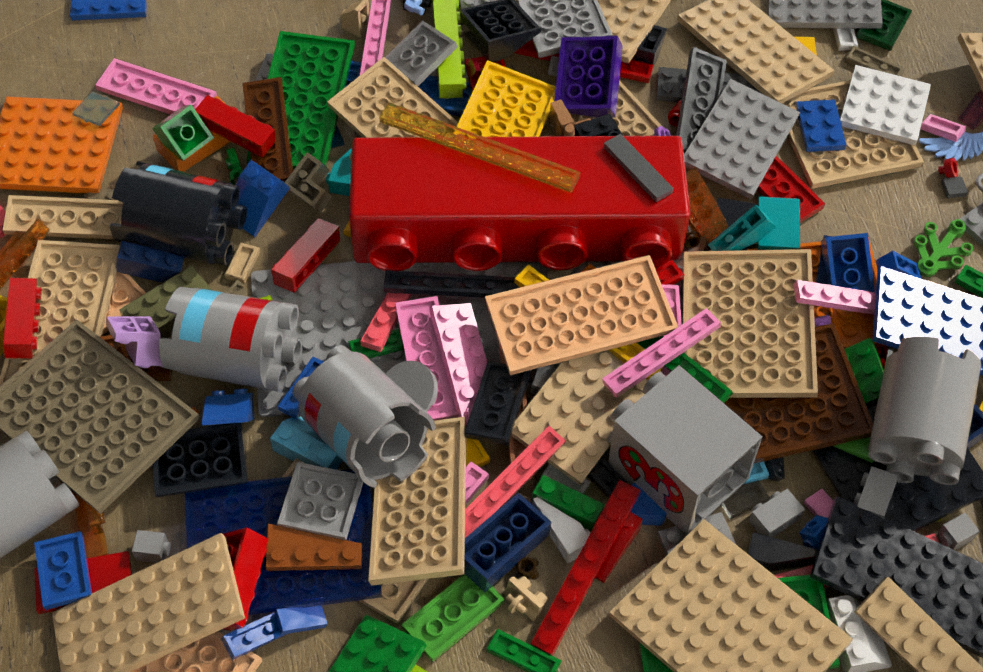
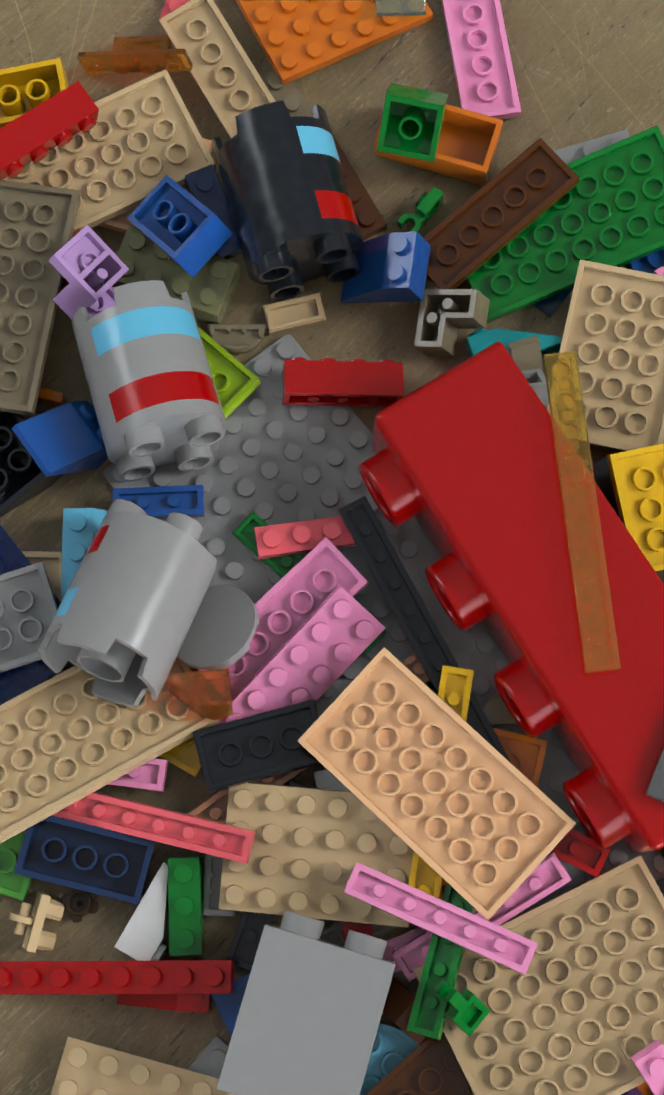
camera: 65 degrees right, 20 degrees up
(146, 275) = (180, 225): none -> blue slope
(236, 126) = (464, 175): red brick -> none
(447, 412) = (204, 692): none -> clear orange slope
(721, 368) = (465, 1008): none -> green plate

